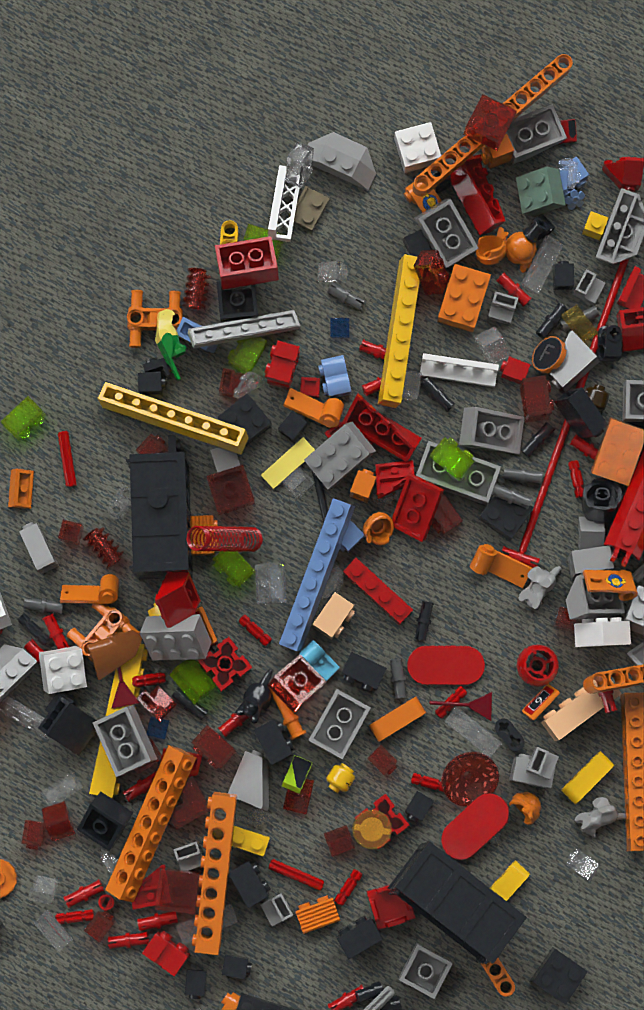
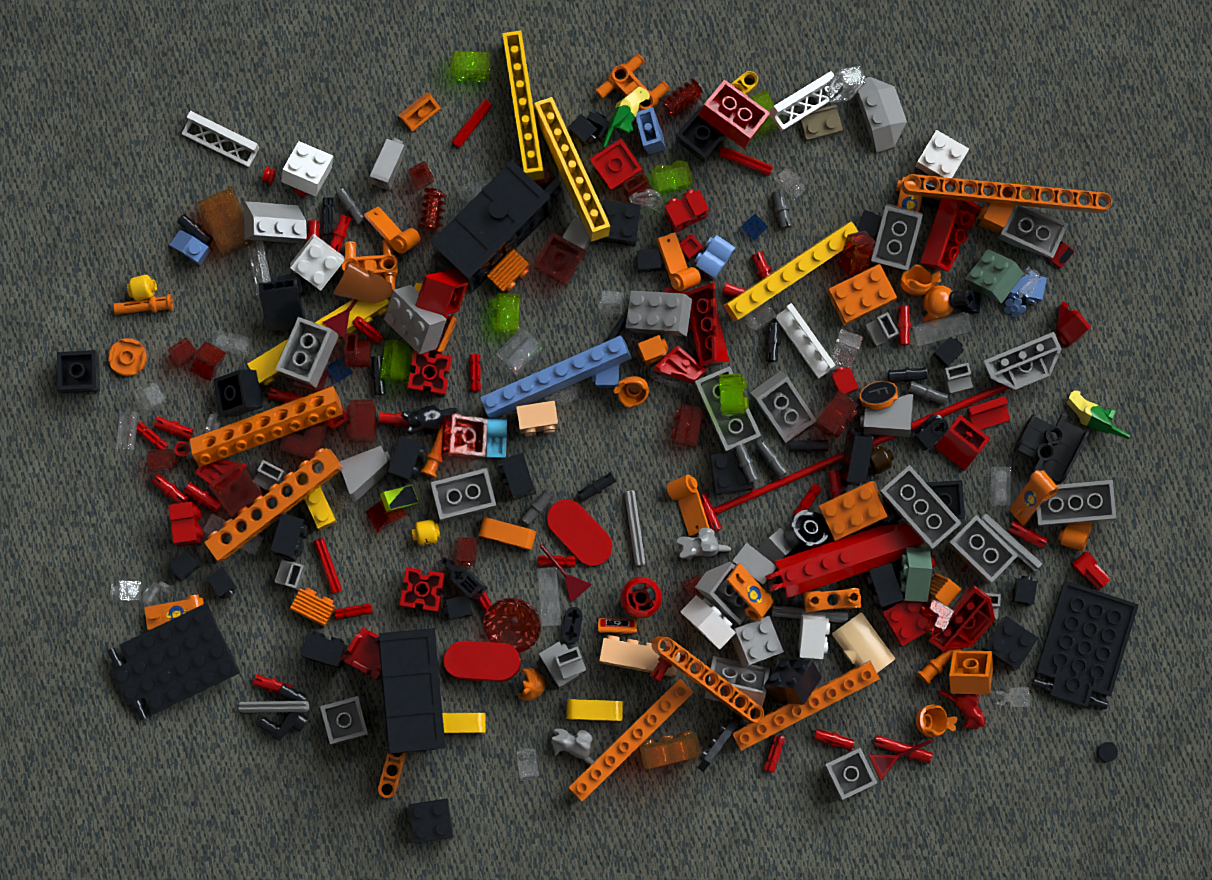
camera: 45 degrees right, 0 degrees up
(91, 408) = (523, 105): none -> yellow brick
(200, 383) = (615, 165): none -> red panel
(208, 540) = (531, 301): red piece -> none
(243, 329) = (685, 158): light grey tile -> none
(285, 288) = (745, 160): none -> red axle
(287, 463) = (618, 282): light yellow tile -> none
(339, 840) = (380, 572): clear red piece -> none
(372, 829) = (409, 586): clear yellow tile -> none
(377, 591) = (586, 433): red brick -> none
(412, 782) = (469, 584): none -> black piece
(416, 507) = (673, 403): red plate -> none
(480, 622) = (634, 525): none -> light grey axle
(490, 122) = (1003, 188): clear red brick -> none
(579, 323) = (923, 396): clear yellow tile -> none
(595, 225) = (1008, 339): yellow brick -> none

